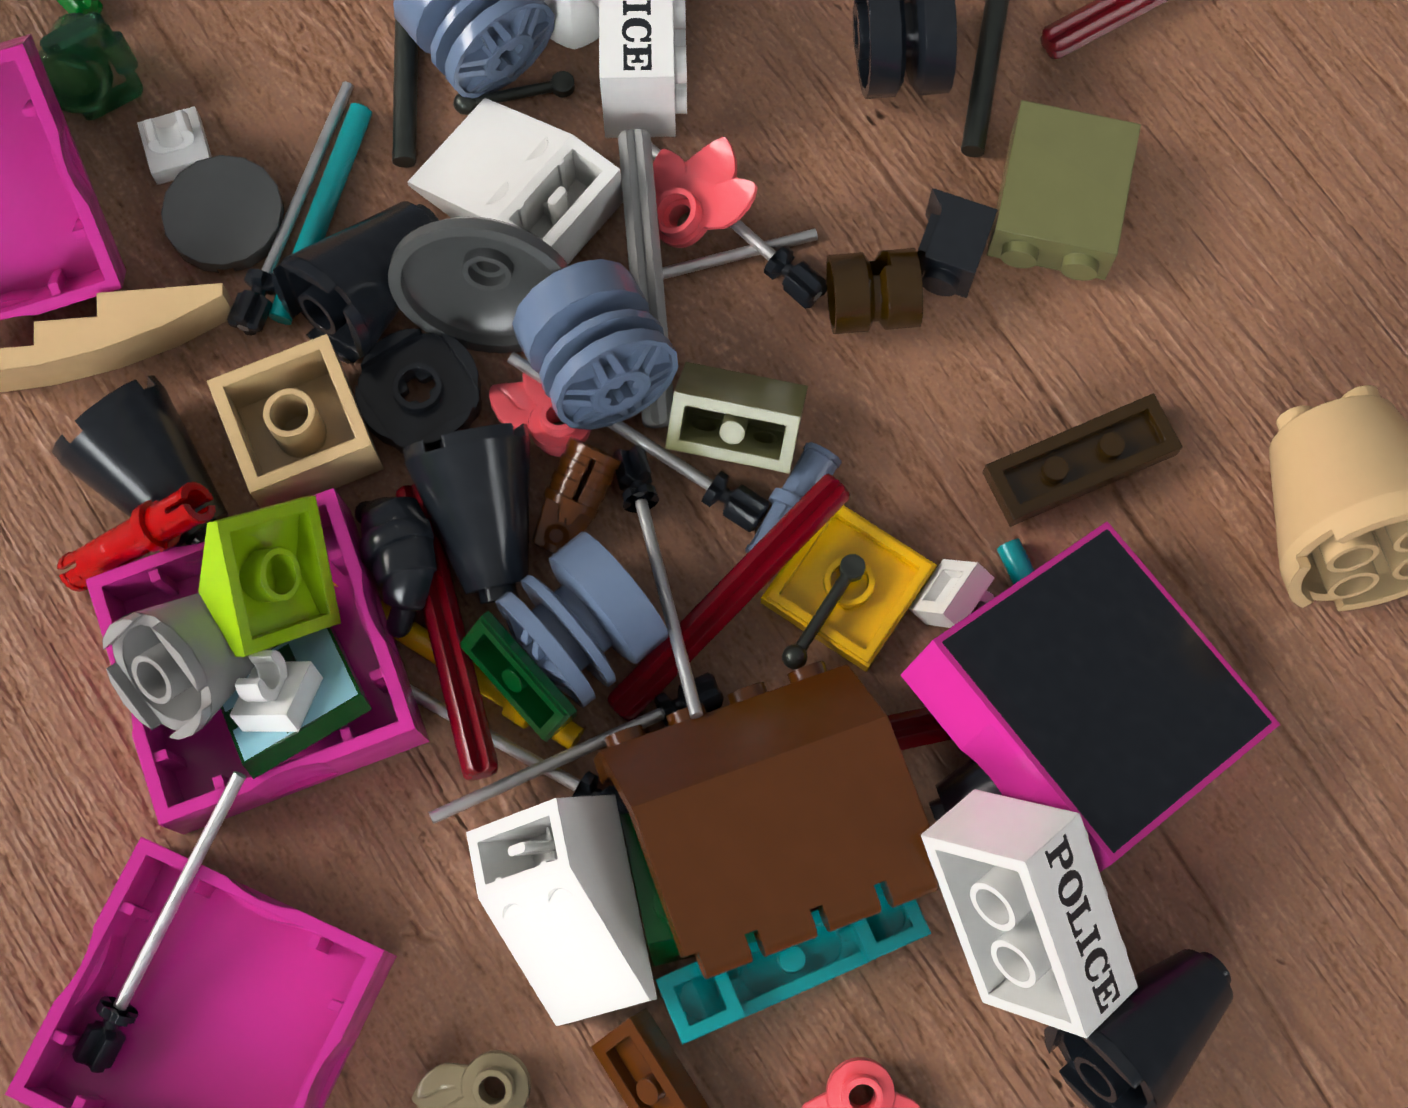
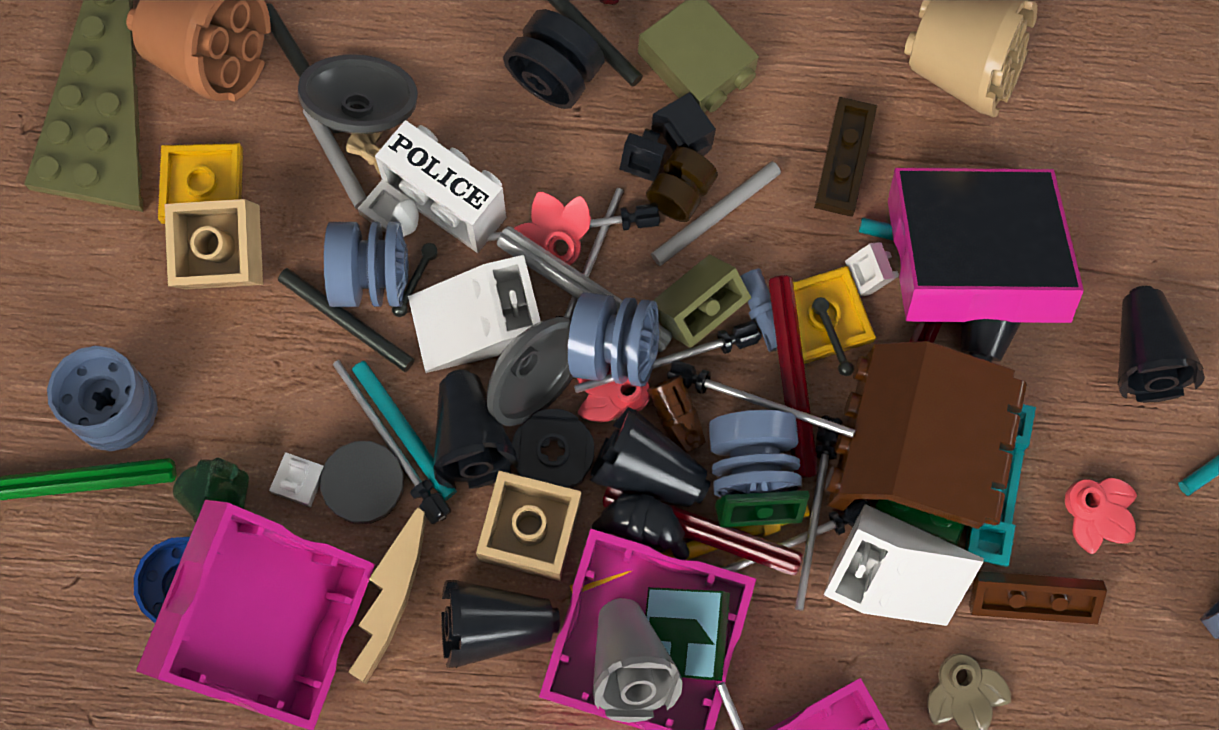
camera: 55 degrees left, 0 degrees up
(150, 528) = (539, 639): red pin -> none
(268, 576) = (624, 594): lime slope -> none
(275, 694) = (686, 637): white tile -> none
(876, 220) = (643, 155): none -> black tile
(878, 363) = (715, 213): none -> light grey bar
(1031, 910) = (1069, 348): white brick -> none

